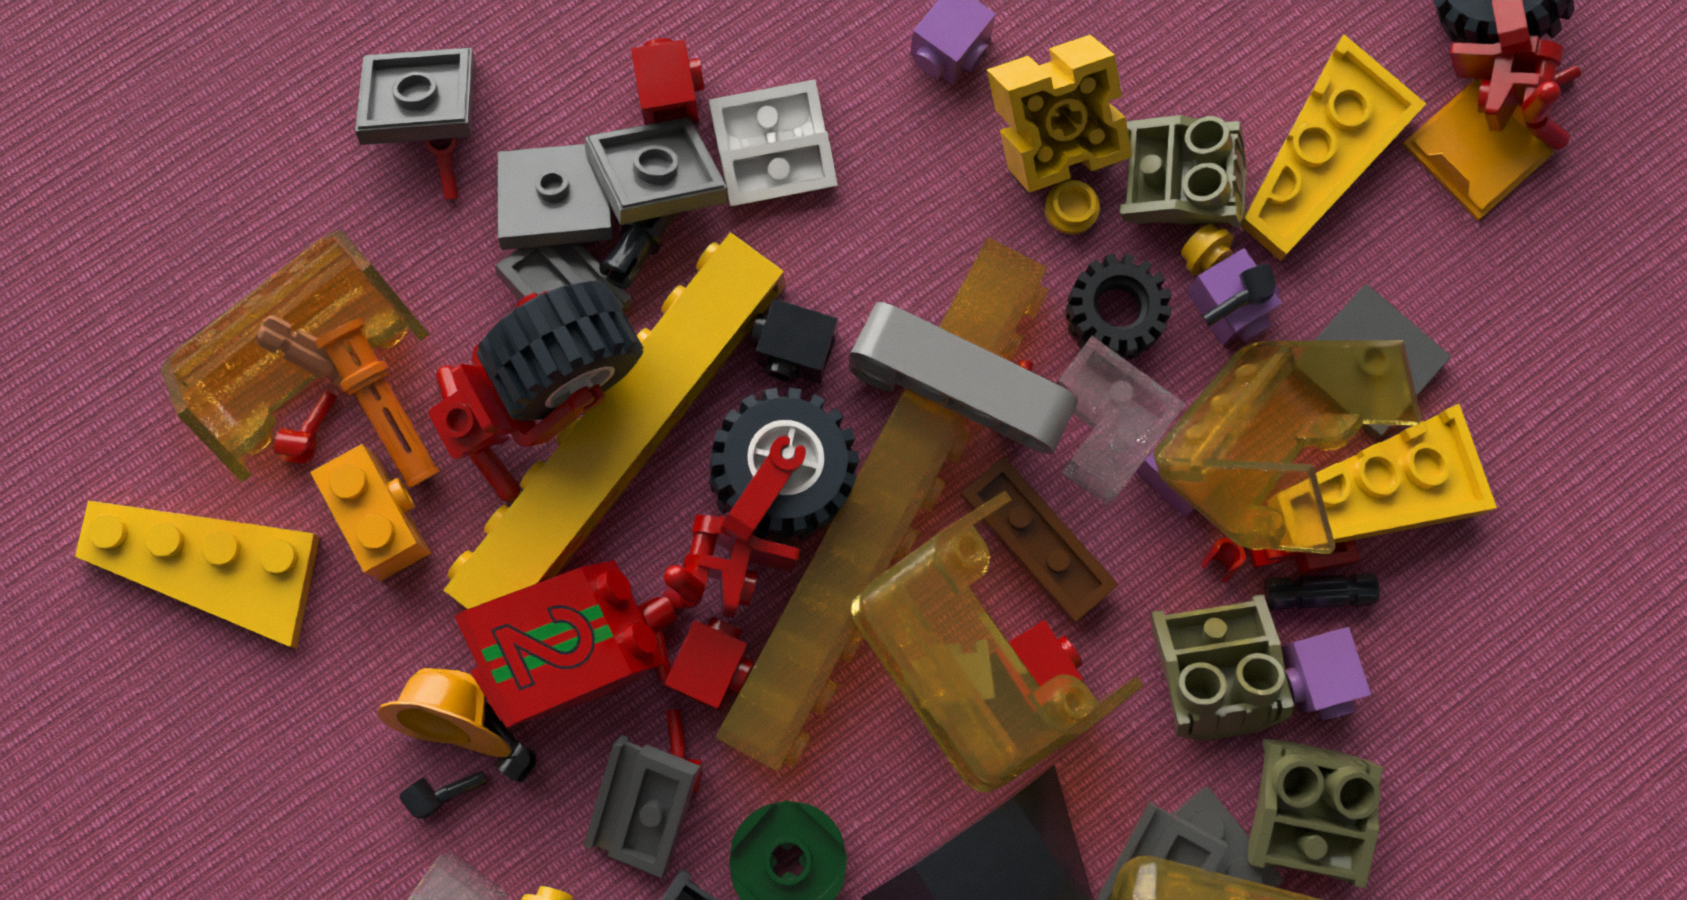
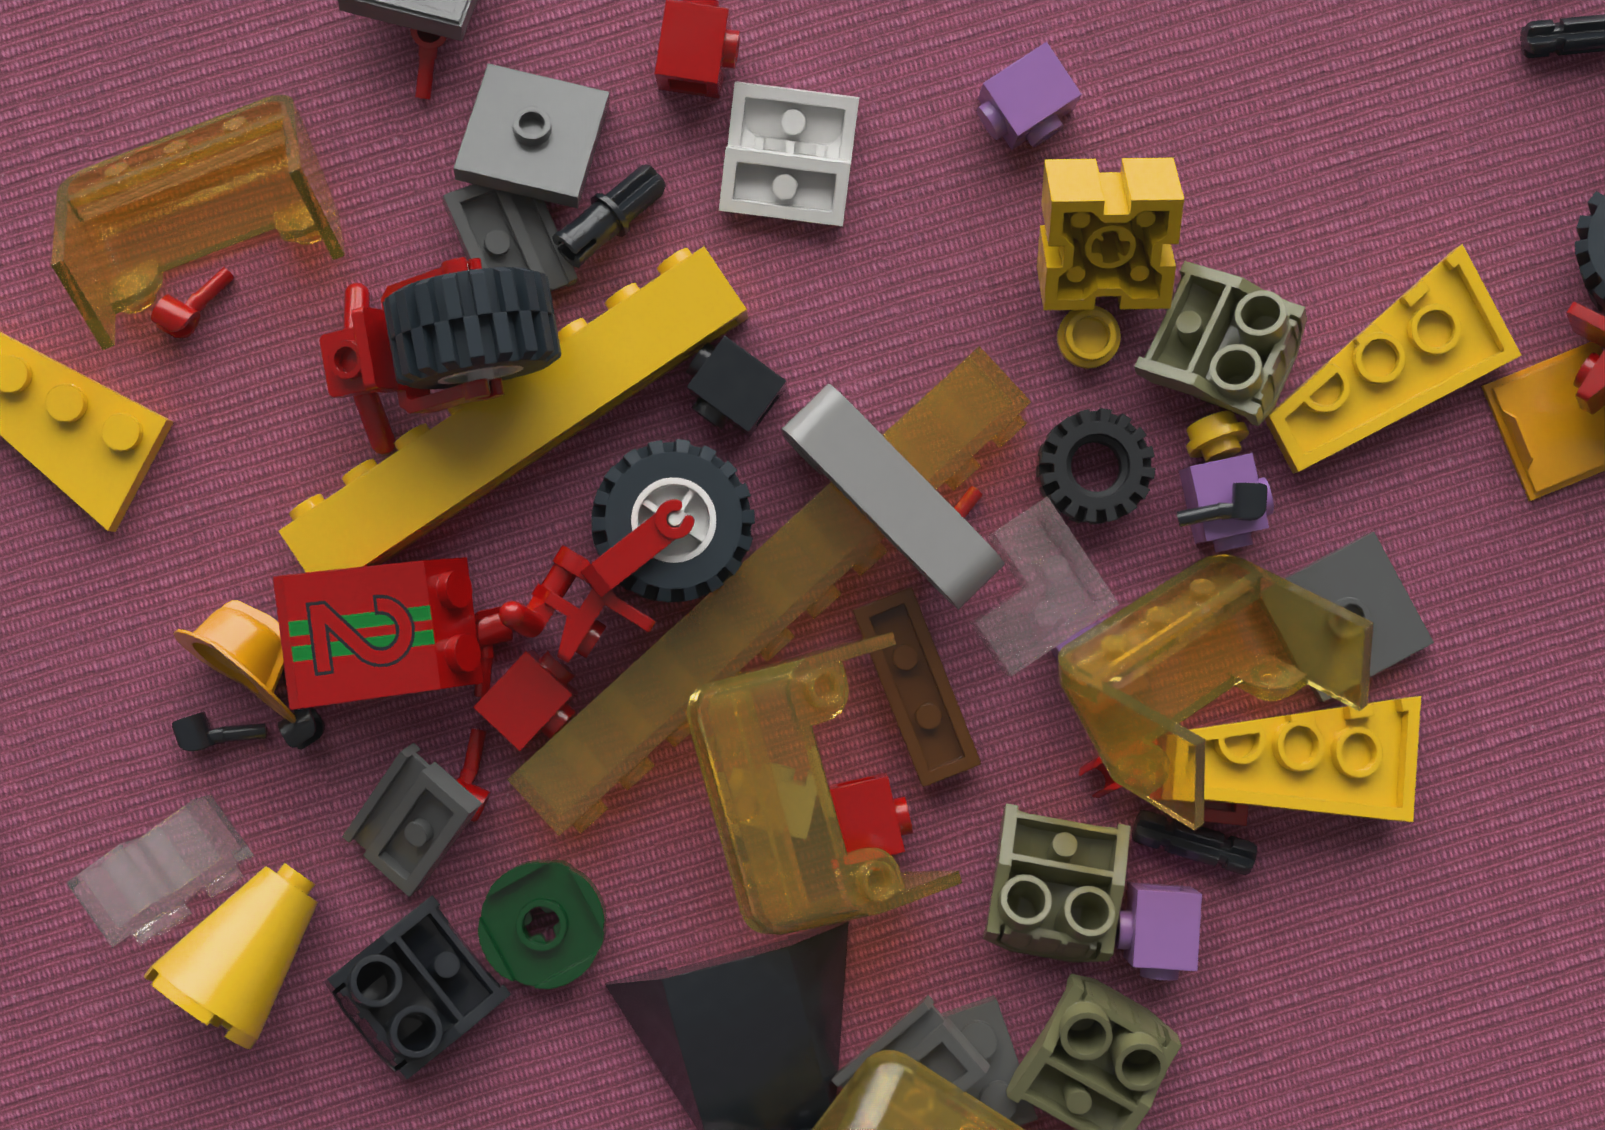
camera: 20 degrees right, 10 degrees up
(297, 348) = (219, 226): nougat axle -> none
(356, 380) = (295, 381): orange pin -> none
(371, 512) = (231, 419): light orange brick -> none
(655, 170) = (648, 146): dark grey plate -> none

